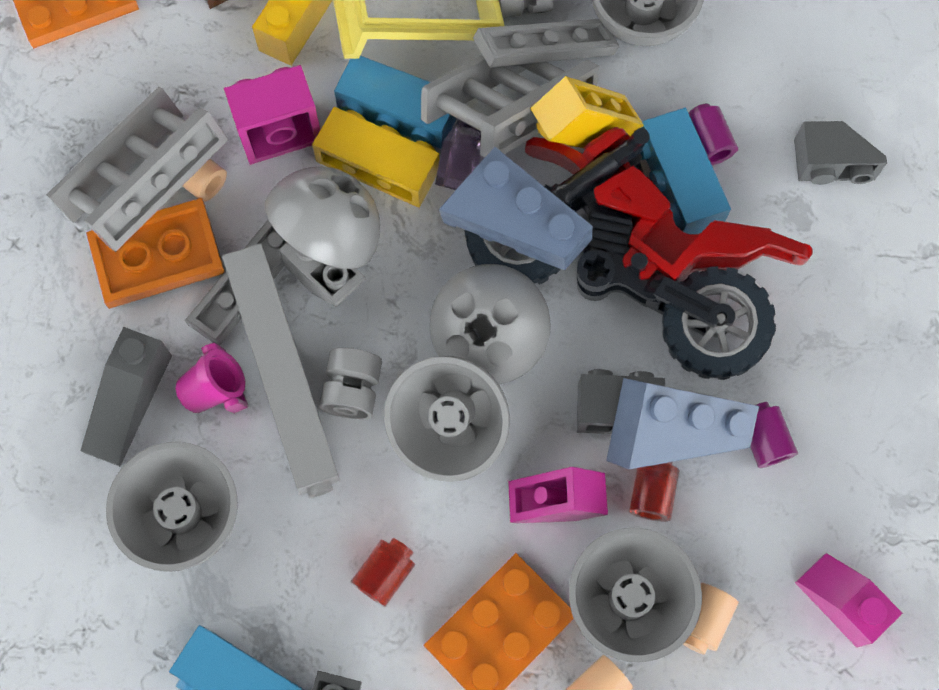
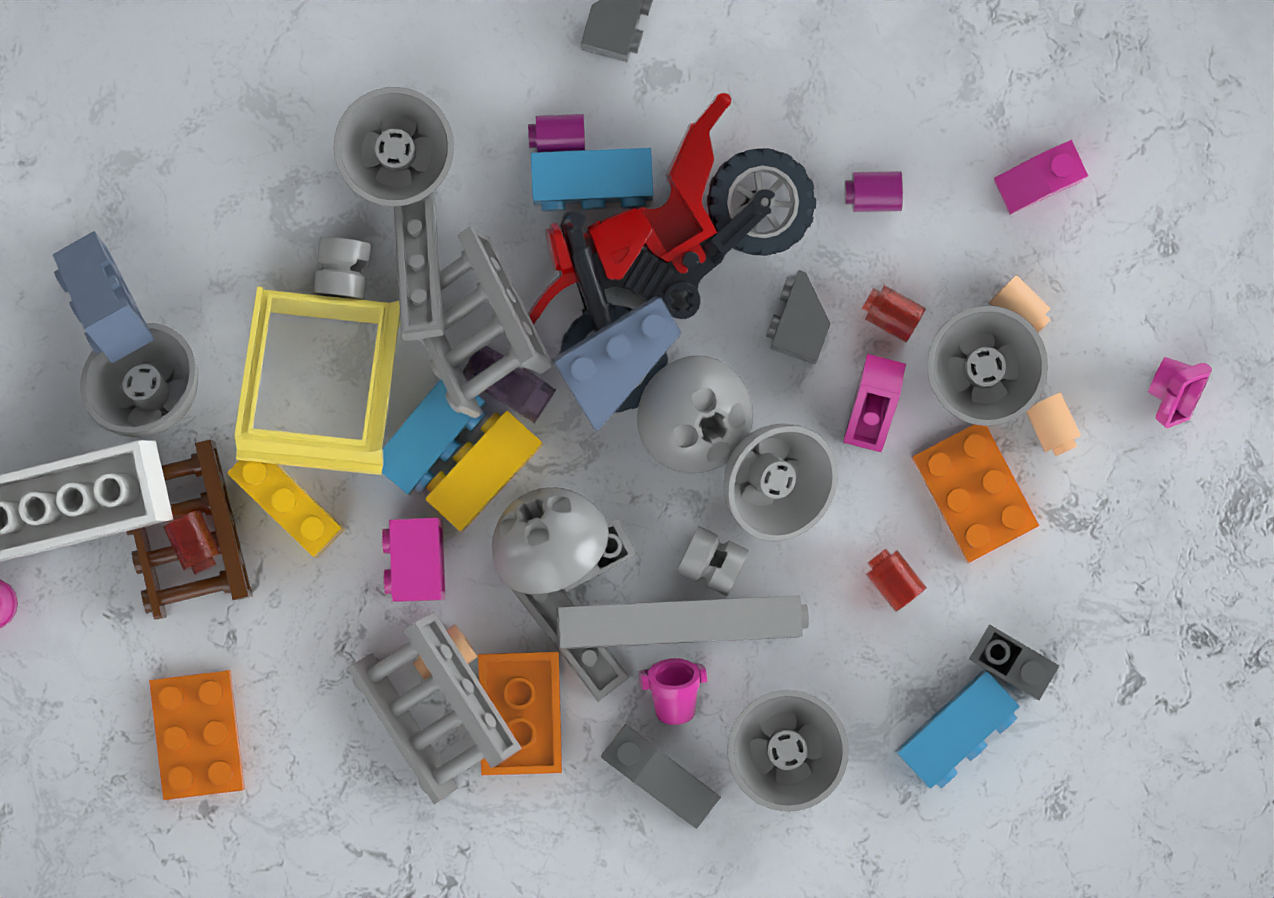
camera: 75 degrees left, 15 degrees up
(580, 112) = (526, 257): yellow brick -> none
(673, 424) = (847, 275): wedge -> none

